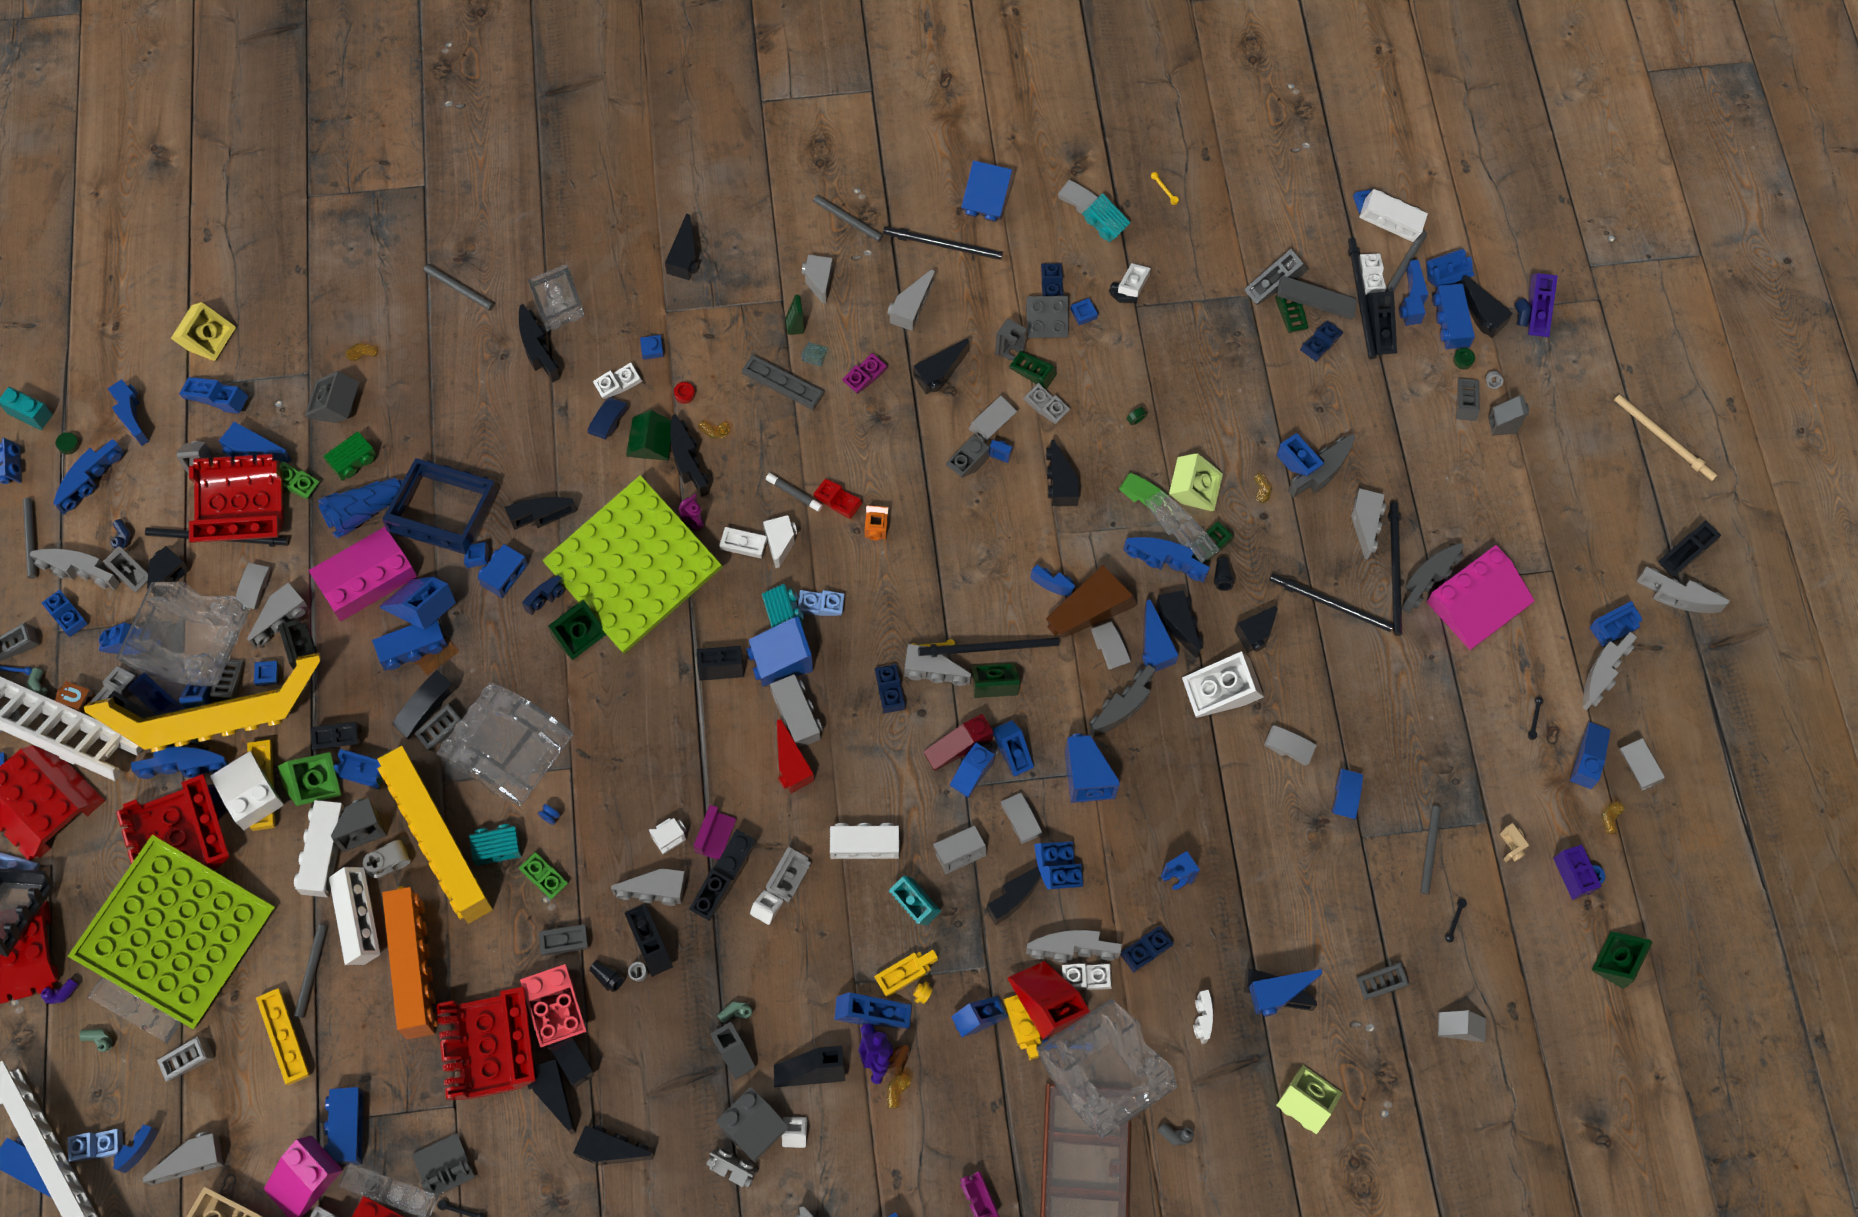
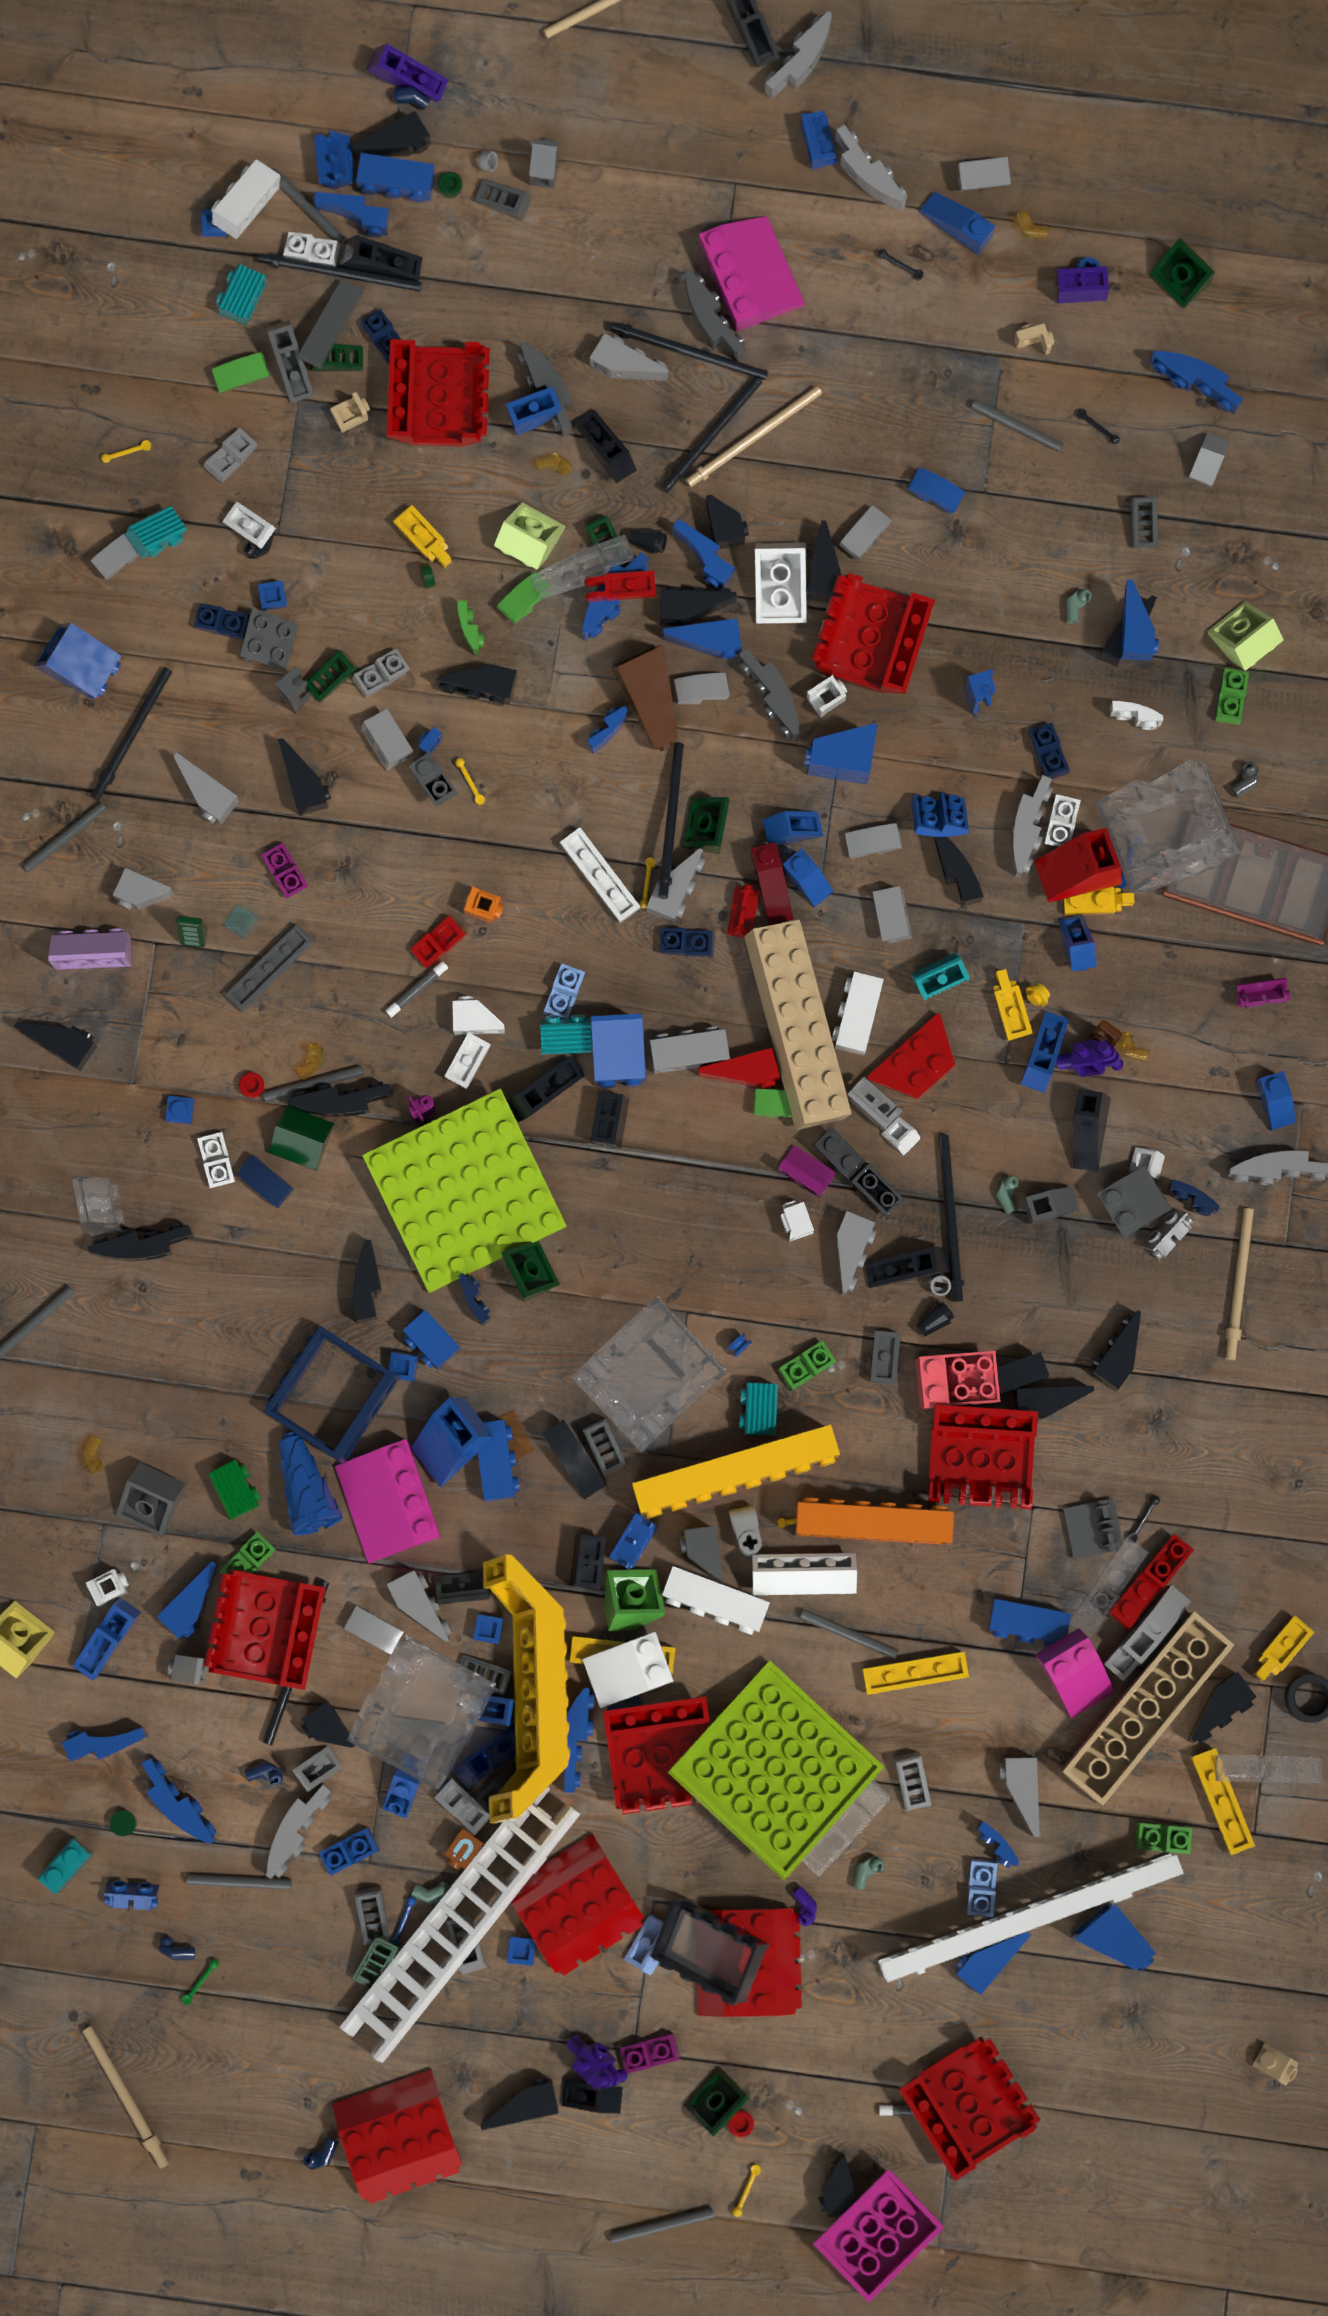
camera: 75 degrees left, 15 degrees up
(260, 391) = (97, 1592): none -> white window
(644, 985) = (956, 1281): none -> black bar
(697, 436) = (313, 1083): none -> dark grey bar
(734, 606) = (544, 1089): none -> black slope
(761, 251) = (90, 949): none -> lavender slope
(768, 797) = (771, 1103): none -> bright green slope
(768, 1187) = (1200, 1201): none -> dark blue slope
(835, 904) = (917, 1062): none -> red wing
(839, 791) = (797, 1024): none -> tan brick
(927, 605) = (600, 875): none -> white plate
(928, 727) = (743, 911): none -> red hinge
(966, 500) = (479, 799): none -> yellow hinge
(1098, 459) = (471, 632): none -> bright green slope
(1140, 741) = (837, 689): none -> white window
(1168, 406) = (423, 535): none -> yellow hinge
(1175, 557) = (622, 586): none -> red hinge
(1190, 260) = (231, 455): none -> light grey slope
(1200, 767) = (871, 635): none -> red slope
(1227, 622) = (715, 570): none -> blue slope
(1240, 720) = (824, 567): none -> black slope
(1249, 1102) = (1232, 696): none -> bright green slope
(1250, 330) = (350, 412): none -> tan bracket
(1255, 247) = (240, 372): none -> bright green slope
(1287, 382) = (437, 394): none -> red slope
(1287, 938) = (1074, 603): none -> sand green arm
(1290, 522) = (605, 446): none -> black slope
(1296, 603) = (703, 472): none -> tan bar
(1317, 233) = (241, 294): none -> teal brick
(1535, 987) = (1189, 371): none -> blue slope

